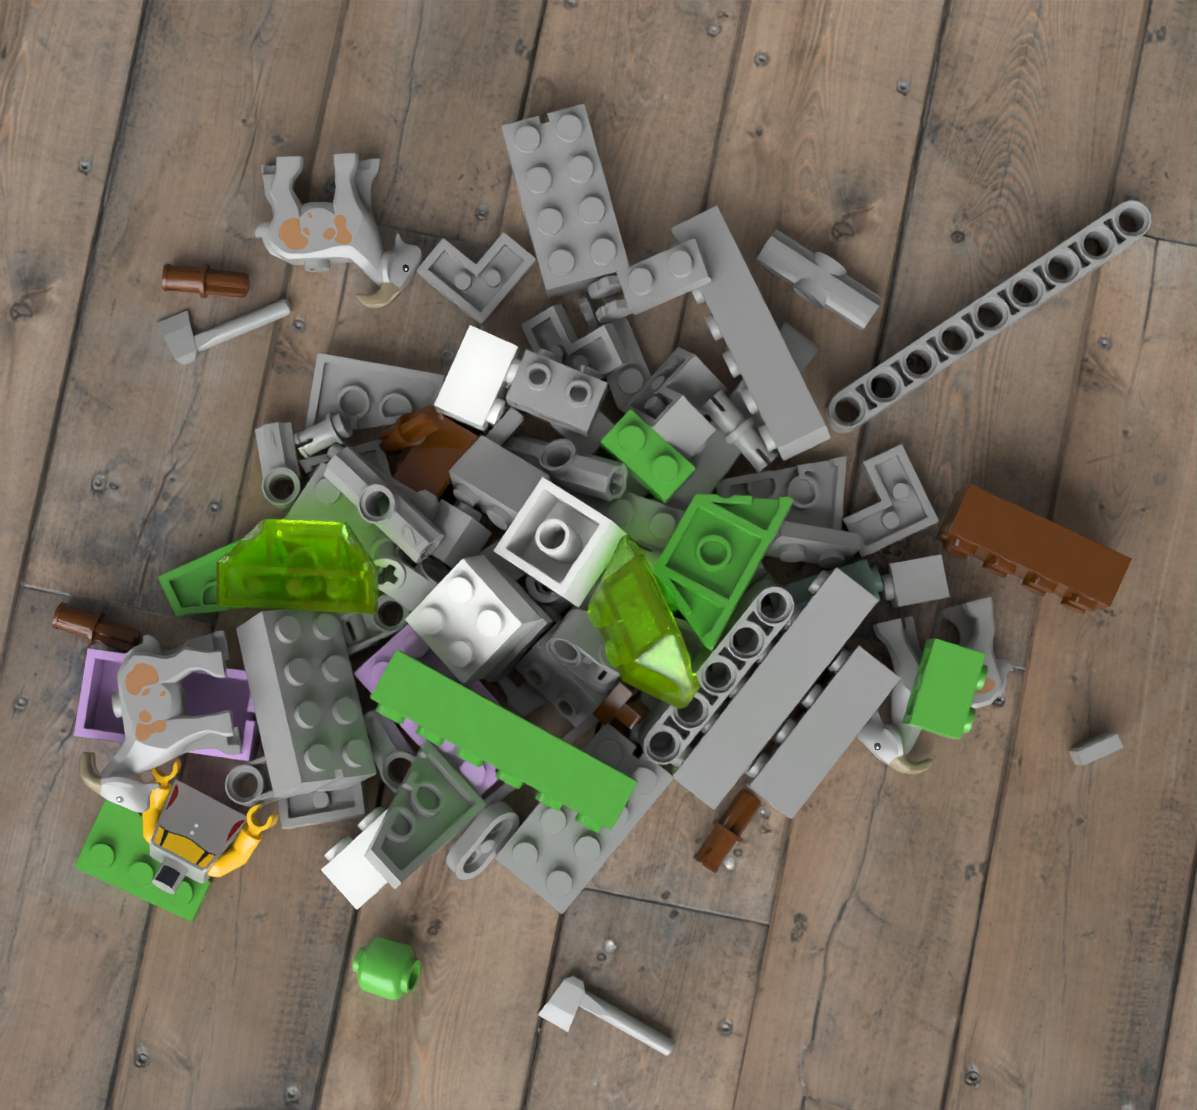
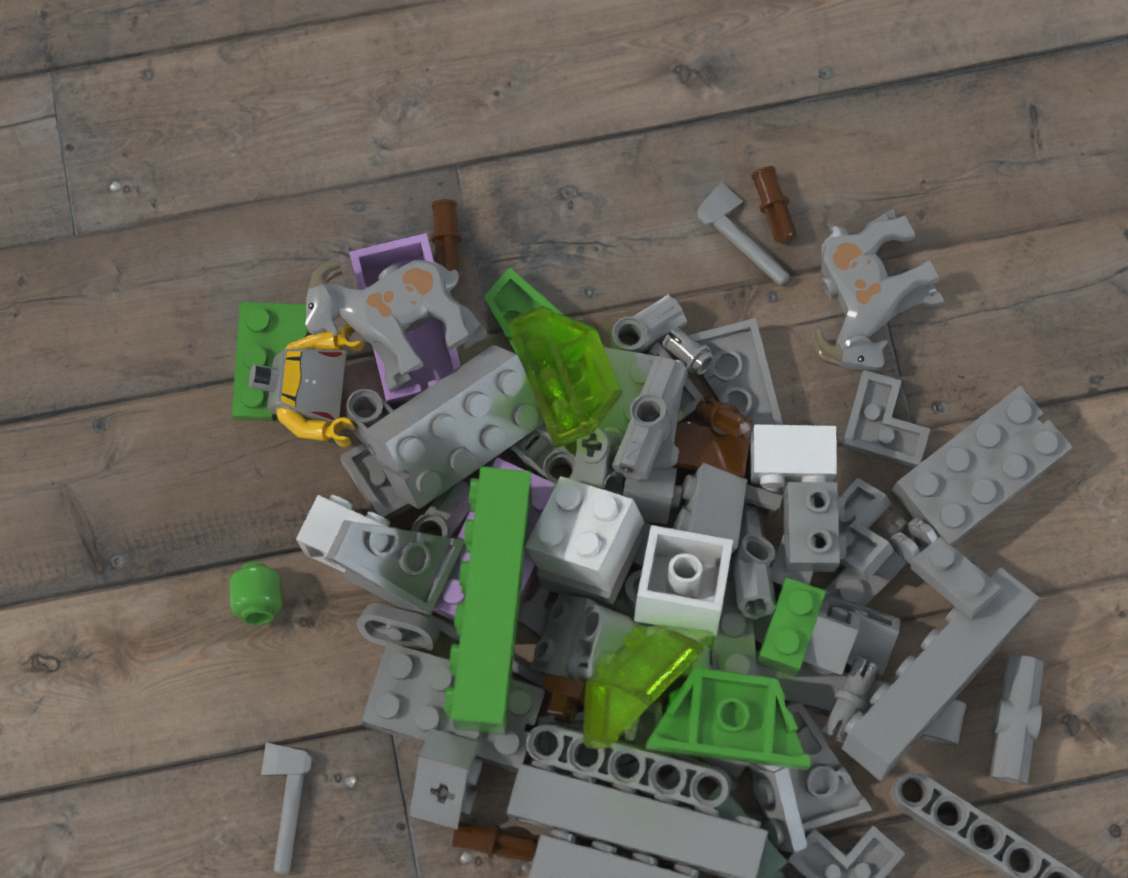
camera: 70 degrees right, 10 degrees down
(652, 854) = (444, 779): none -> light grey brick

